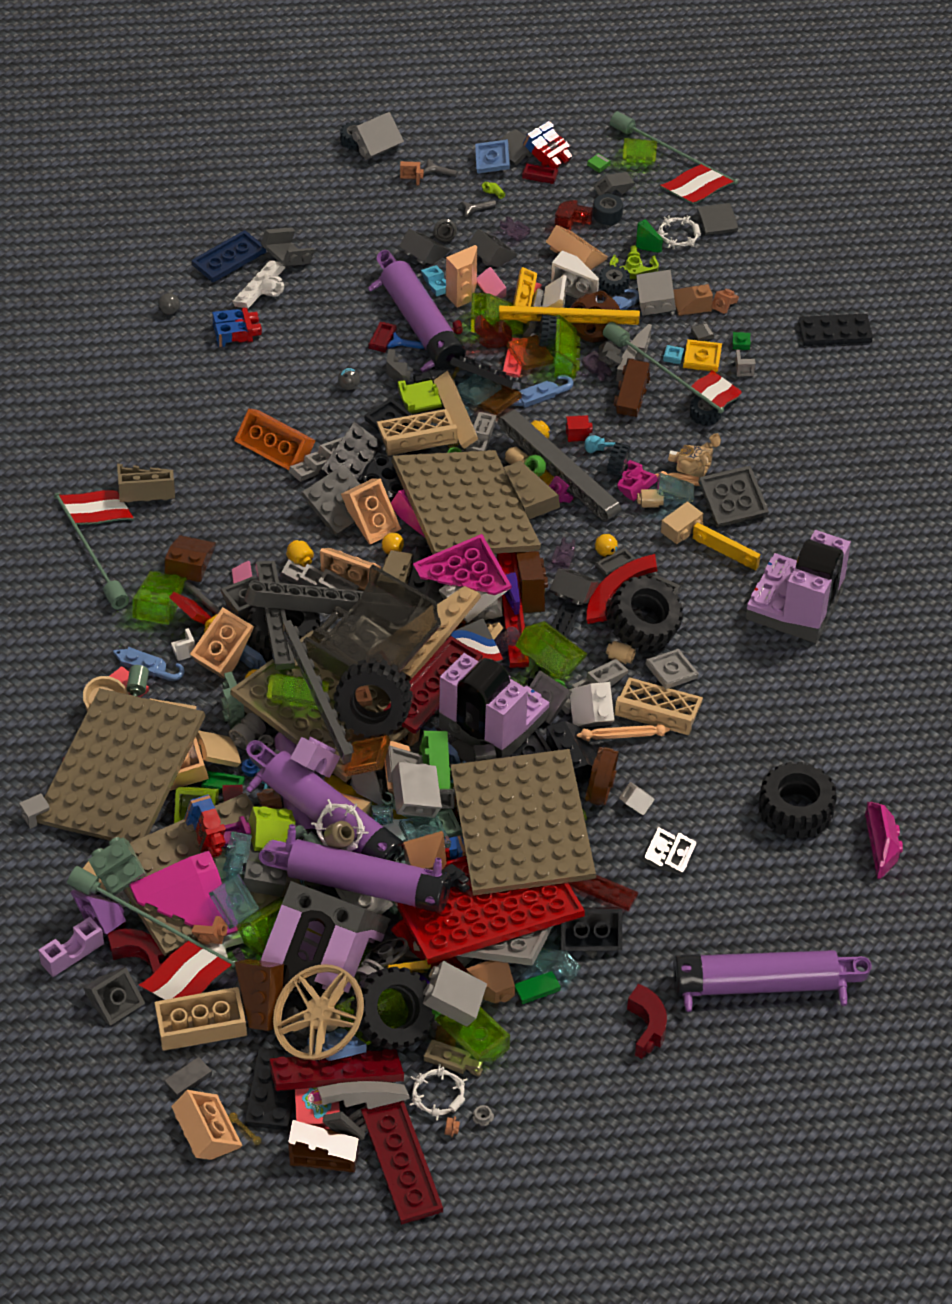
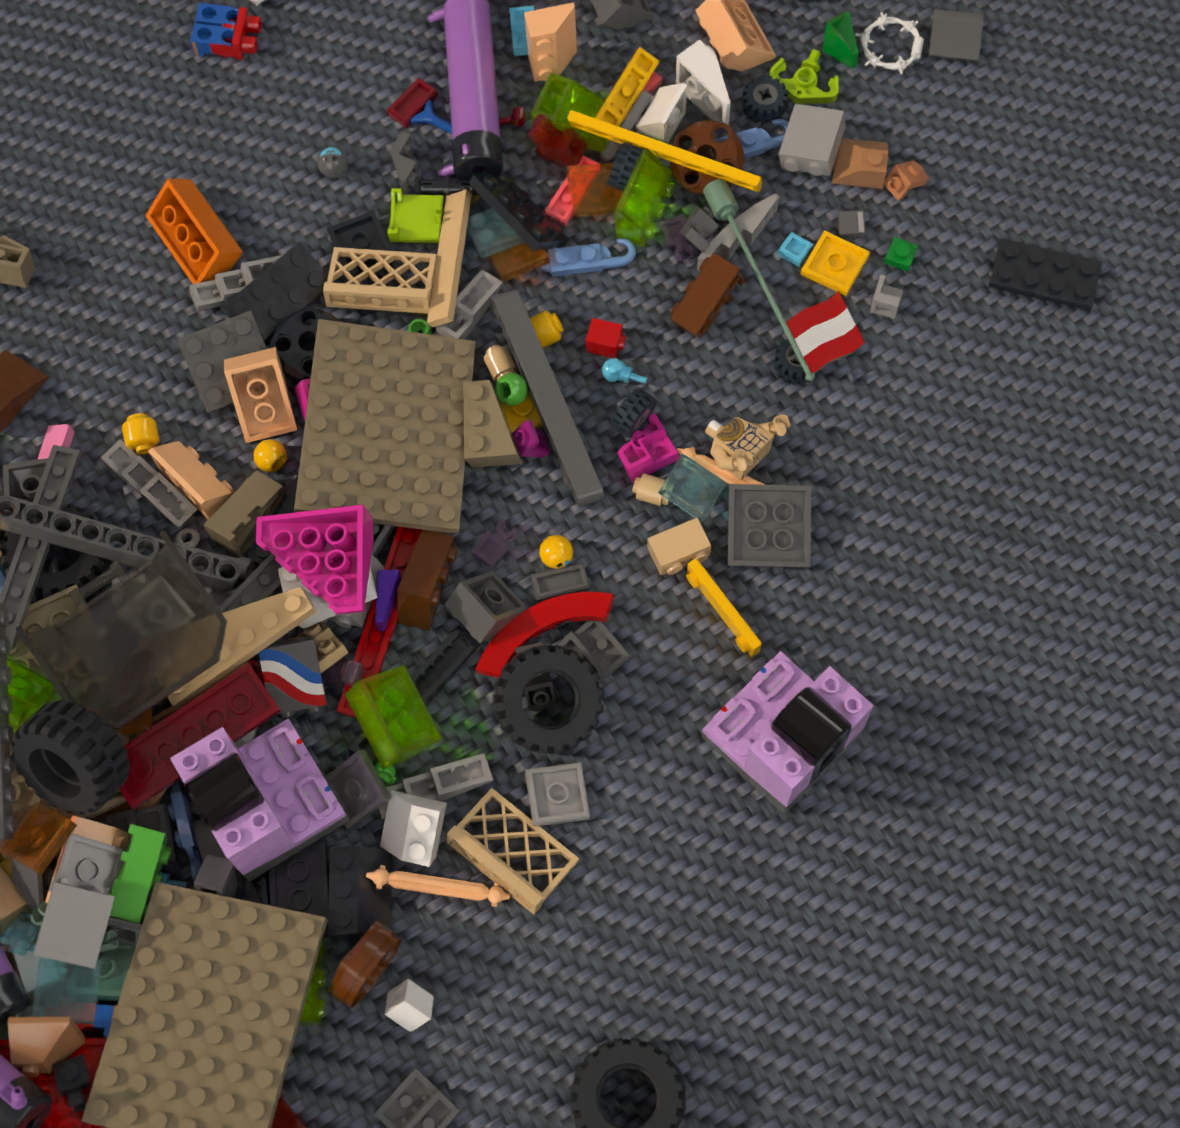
camera: 25 degrees right, 20 degrees up
(491, 283) = (593, 60): bright pink slope -> none
(621, 652) = (496, 743): tan brick -> none

